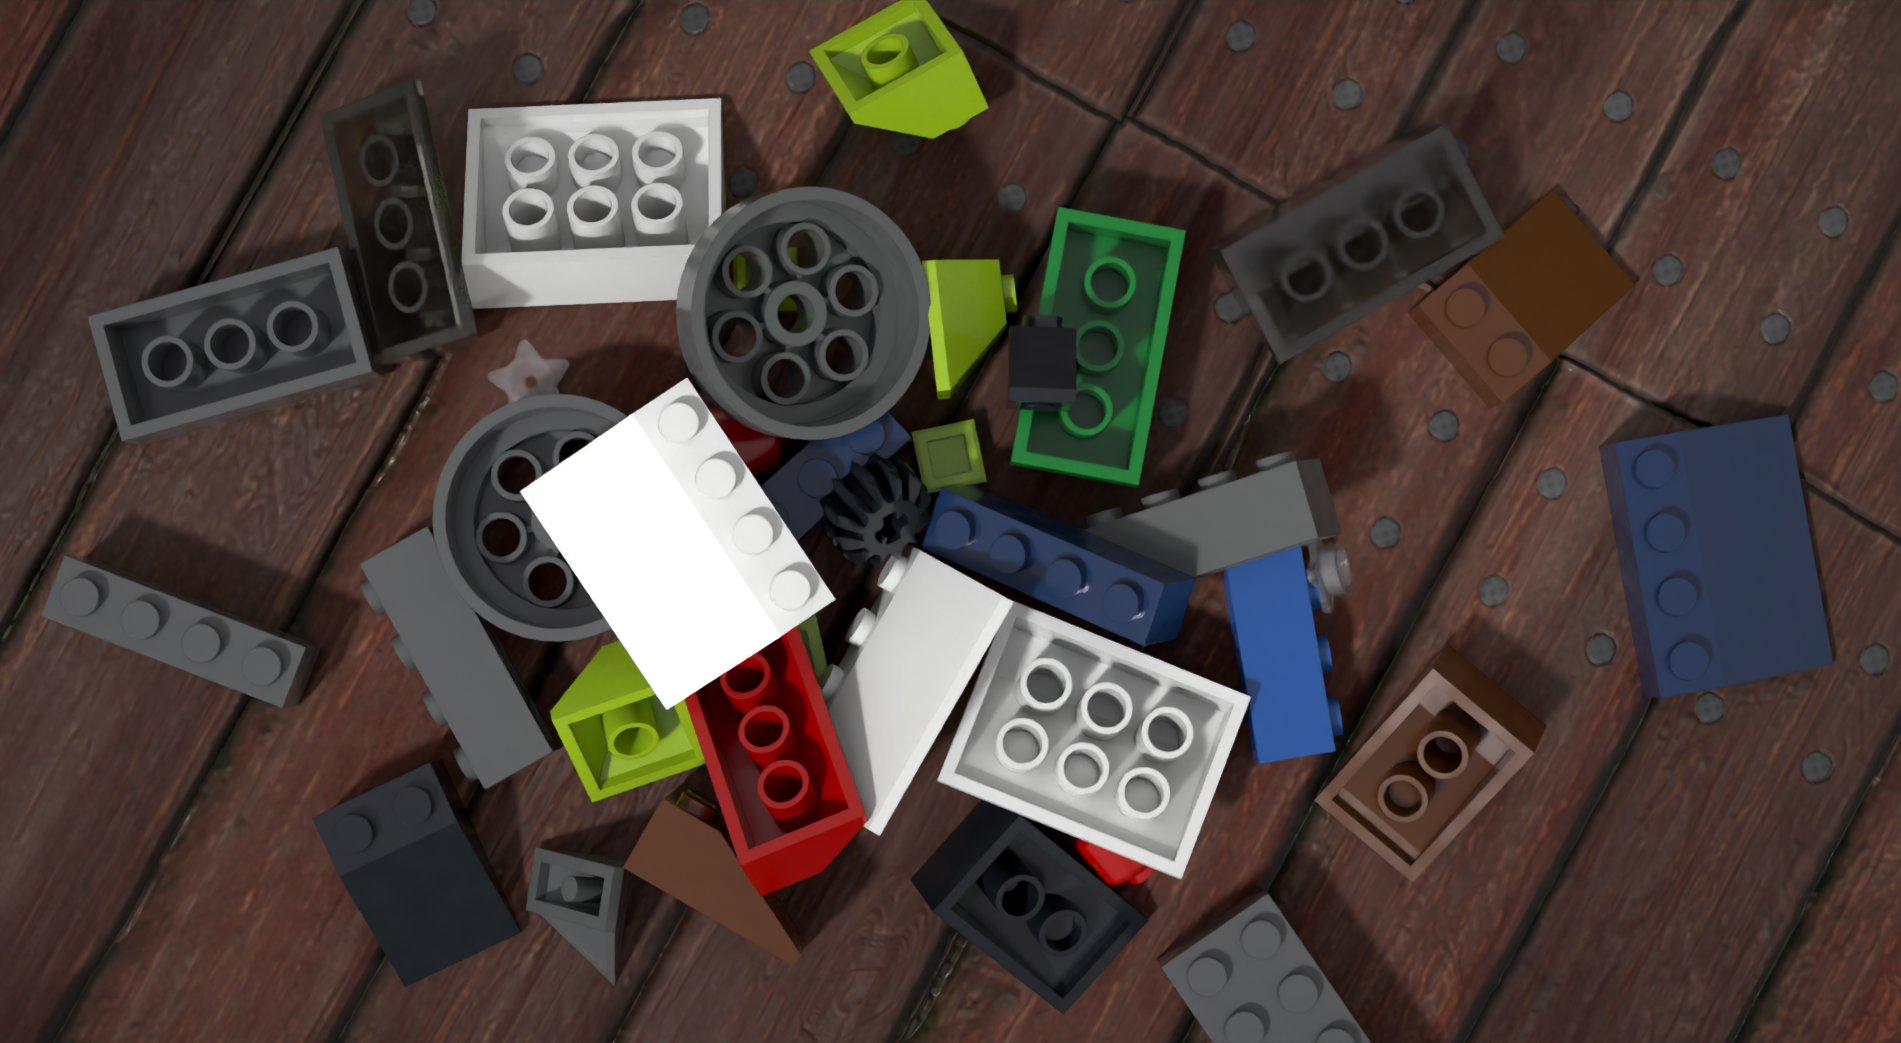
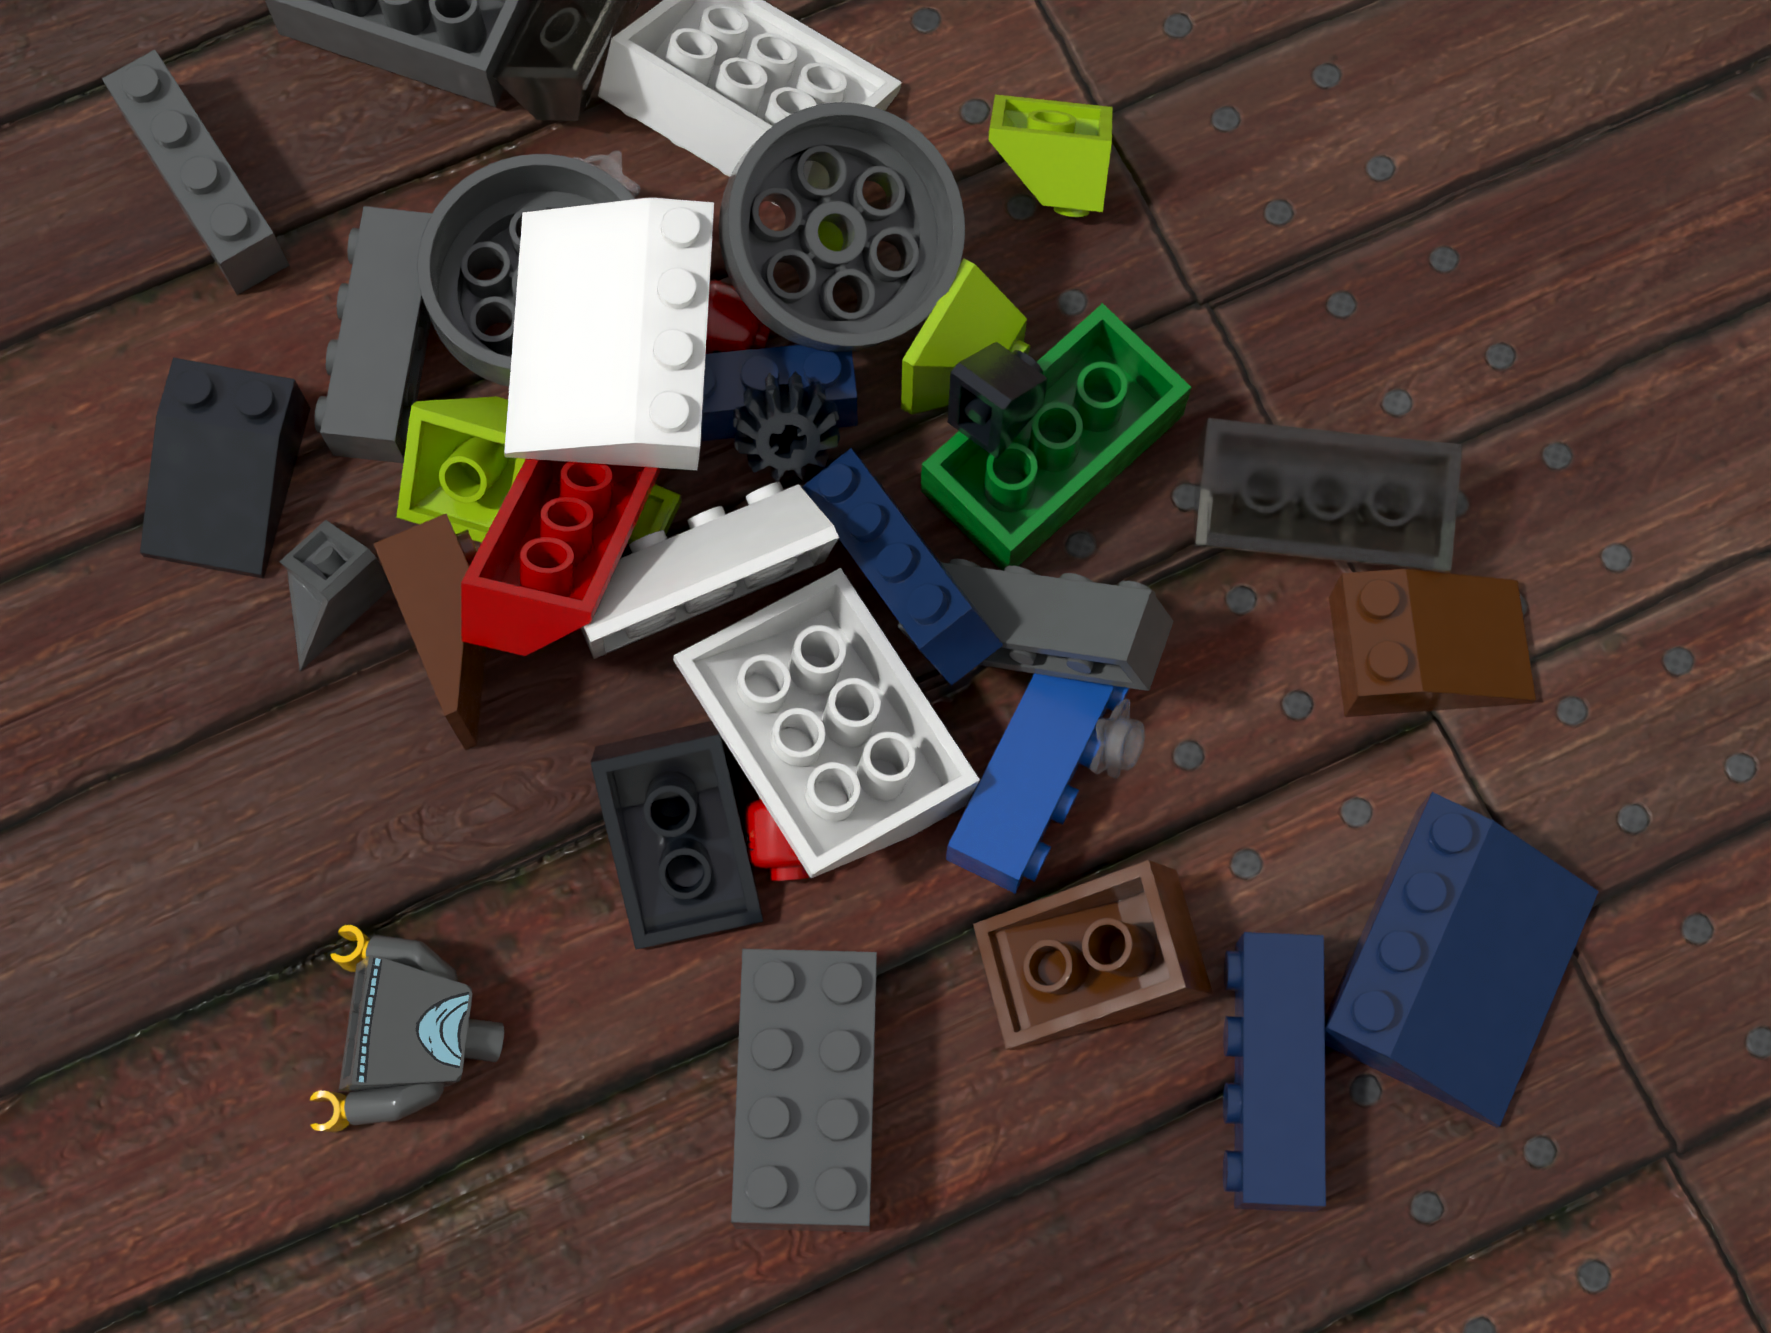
camera: 35 degrees right, 15 degrees down
(949, 456) = (882, 448): lime tile -> none
(1638, 751) = (1277, 1072): none -> dark blue brick

